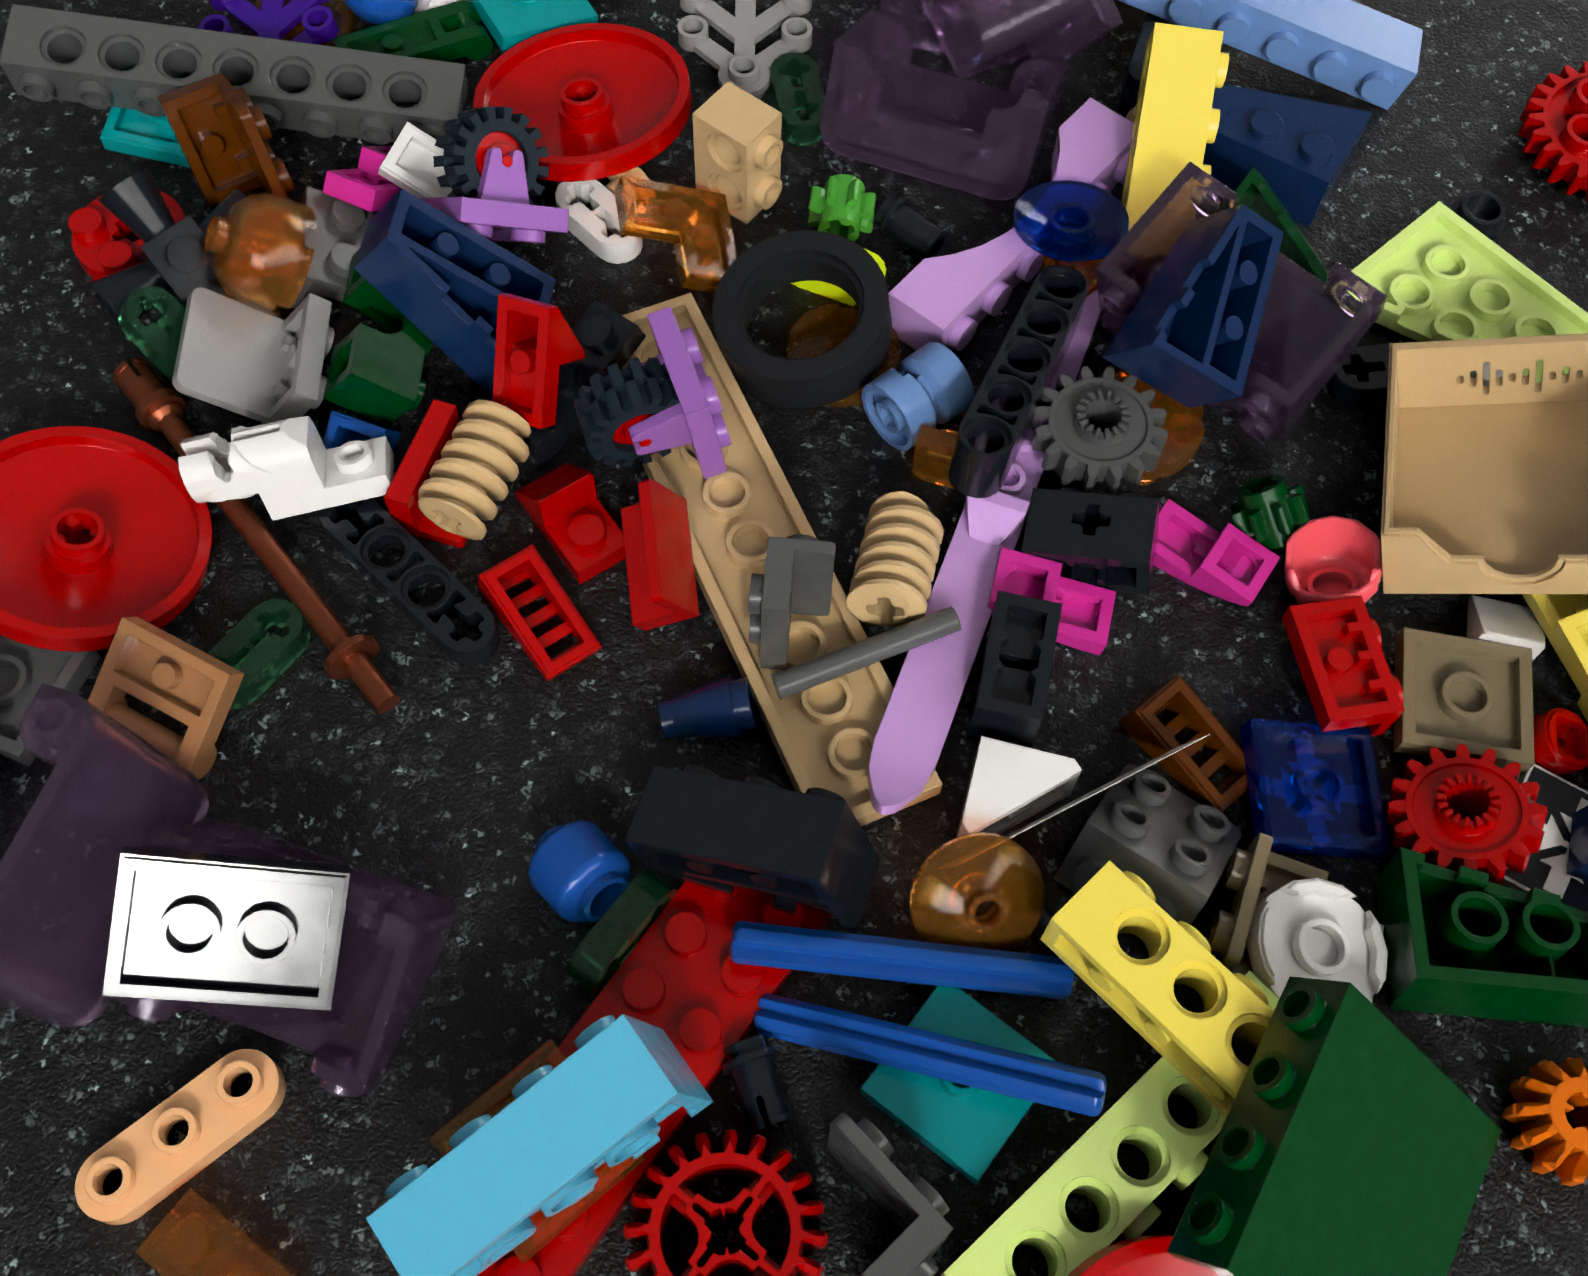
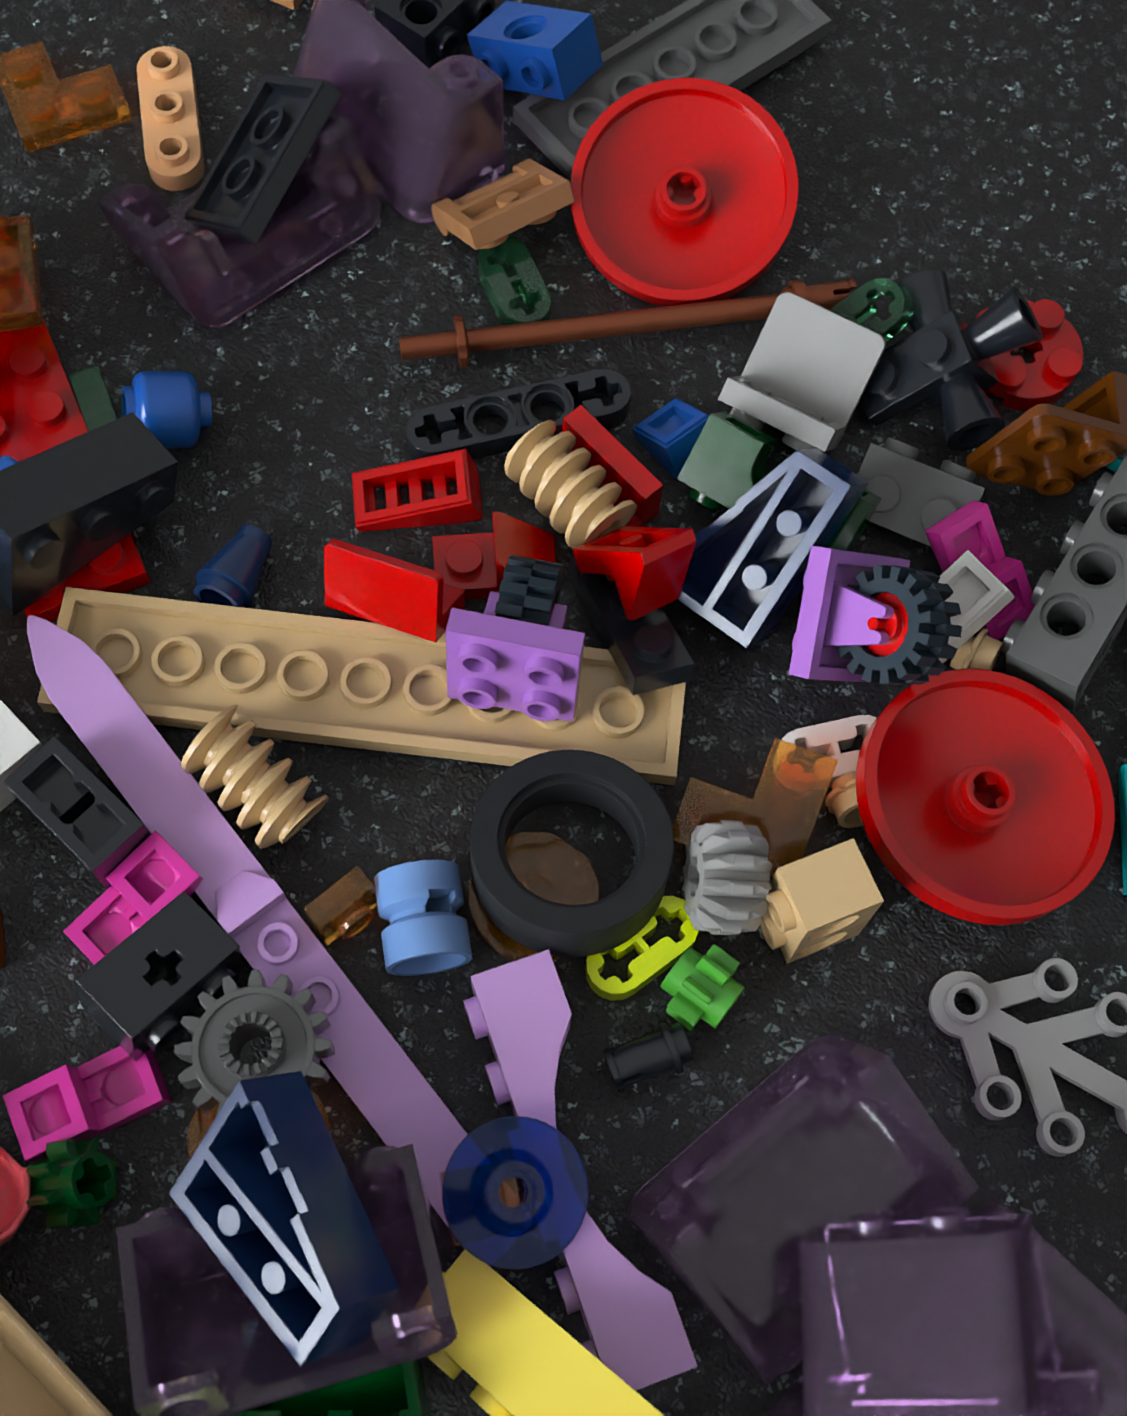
camera: 120 degrees right, 5 degrees up
(262, 250) = (907, 406): clear orange cylinder -> none
(286, 468) = (654, 354): white plate -> none
(759, 203) = (726, 877): none -> light grey gear
(789, 100) = (915, 1036): clear green beam -> none
(794, 581) = (255, 630): dark grey bracket -> none
(866, 652) = (182, 702): dark grey bar -> none
(1016, 380) = (348, 969): black beam -> none

